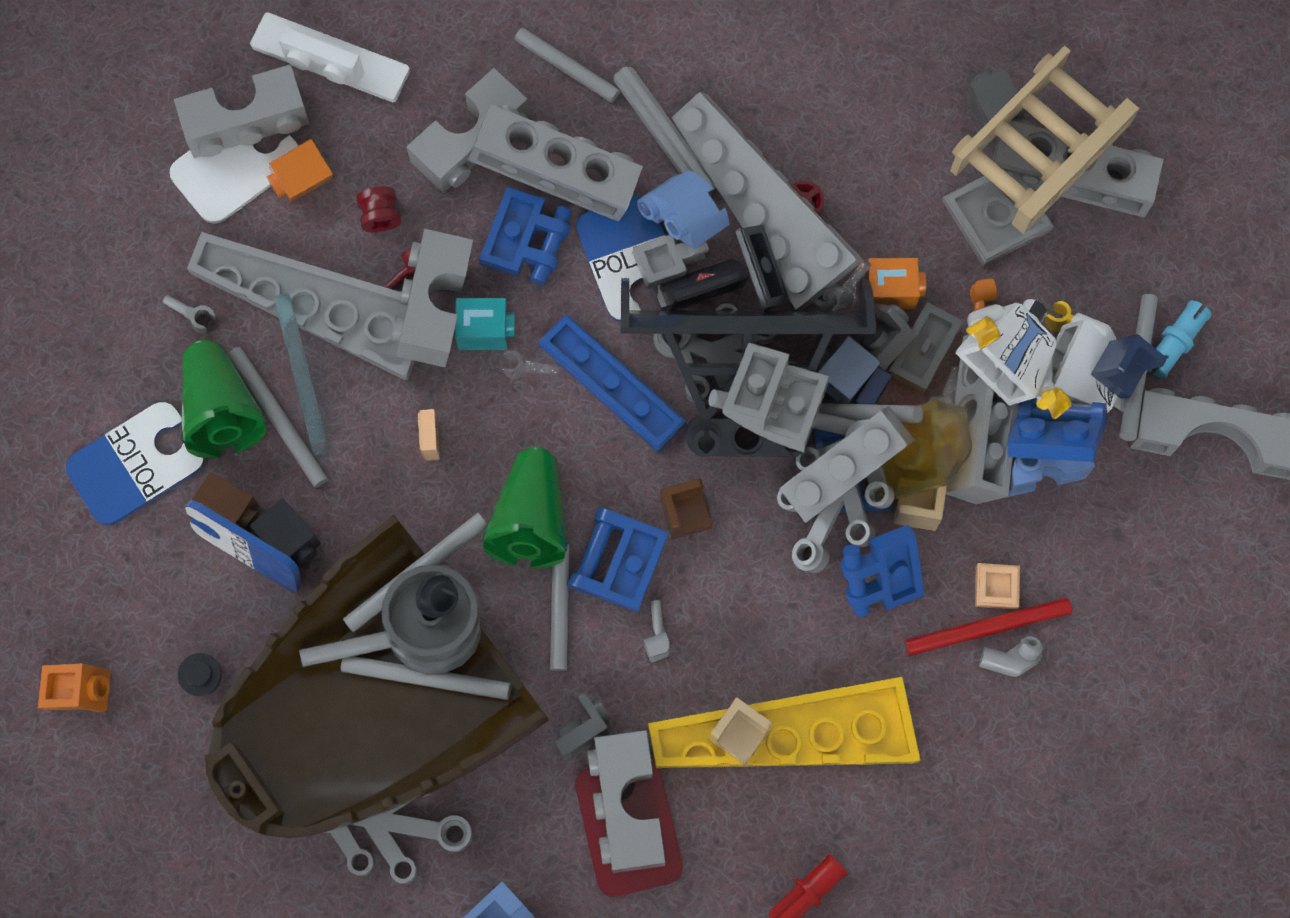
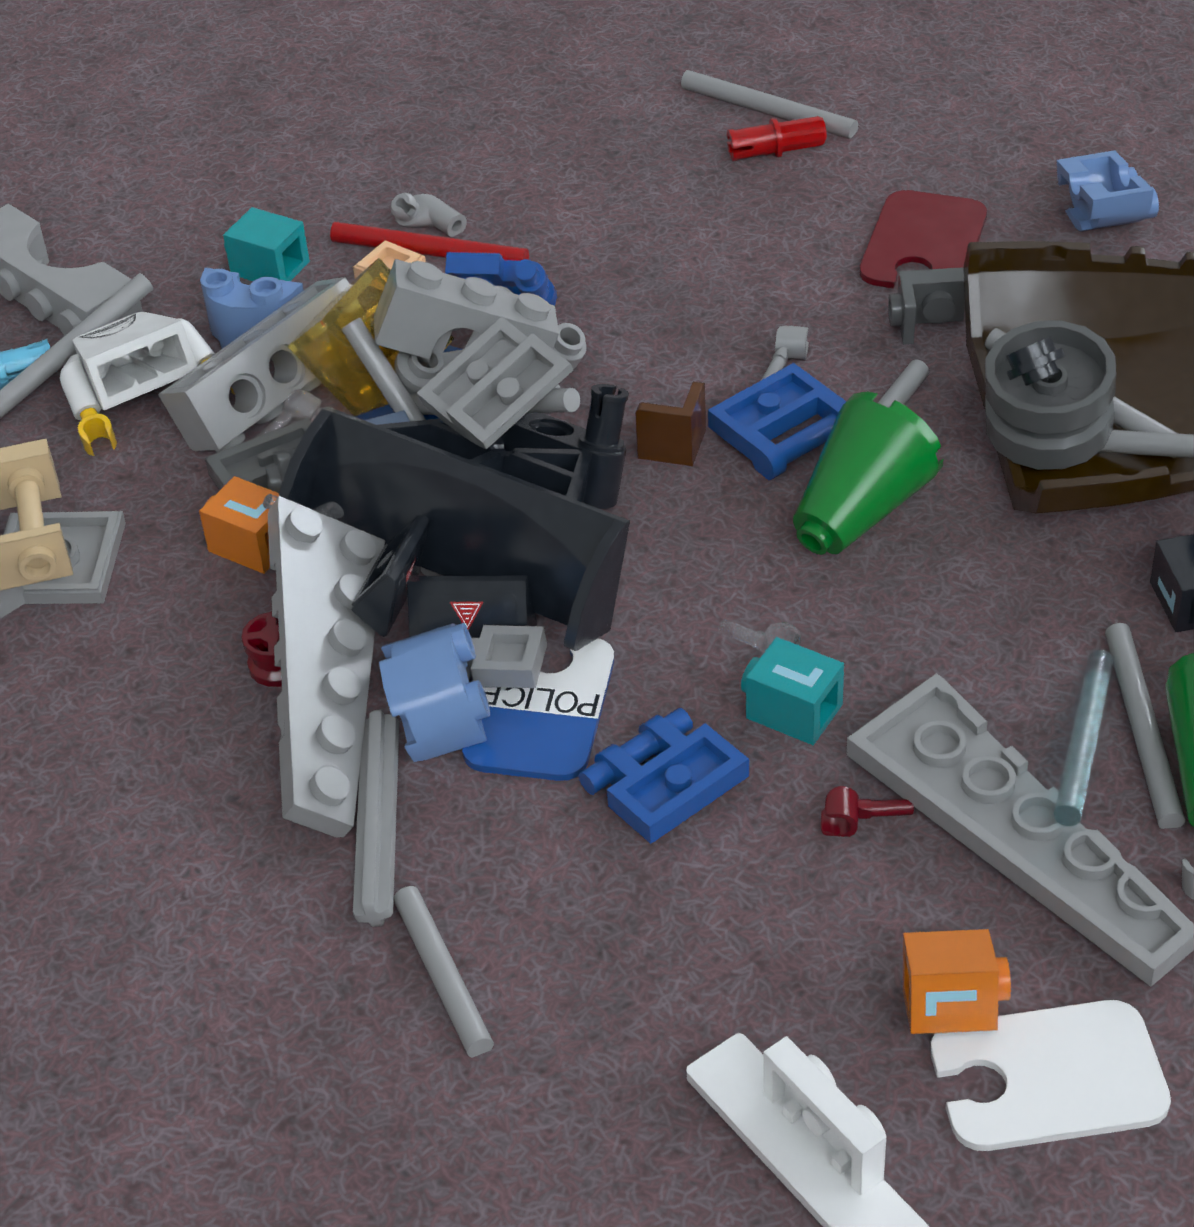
camera: 145 degrees left, 30 degrees down
(273, 110) = (1063, 1102): light grey arch -> none
(378, 209) = (856, 886): dark red wheel -> none
(428, 435) = (942, 606): light nougat tile -> none
(432, 557) = (1037, 467): light grey bar -> none
(440, 265) = (821, 749): light grey arch -> none
(445, 154) = (701, 904): light grey arch -> none
(535, 169) = (567, 794): light grey brick -> none
(612, 383) = (670, 590): blue tile -> none
(630, 841) = (924, 225): light grey arch -> none
(740, 731) = (757, 225): tan panel -> none
(820, 728) = (624, 219): yellow wing -> none
(982, 292) = (159, 489): orange hand -> none
(1014, 354) = (197, 342): white torso -> none
(1051, 439) = (222, 272): blue plate -> none
(1093, 544) = (266, 246): none -> teal brick
(1125, 363) = (87, 307): dark blue panel -> none

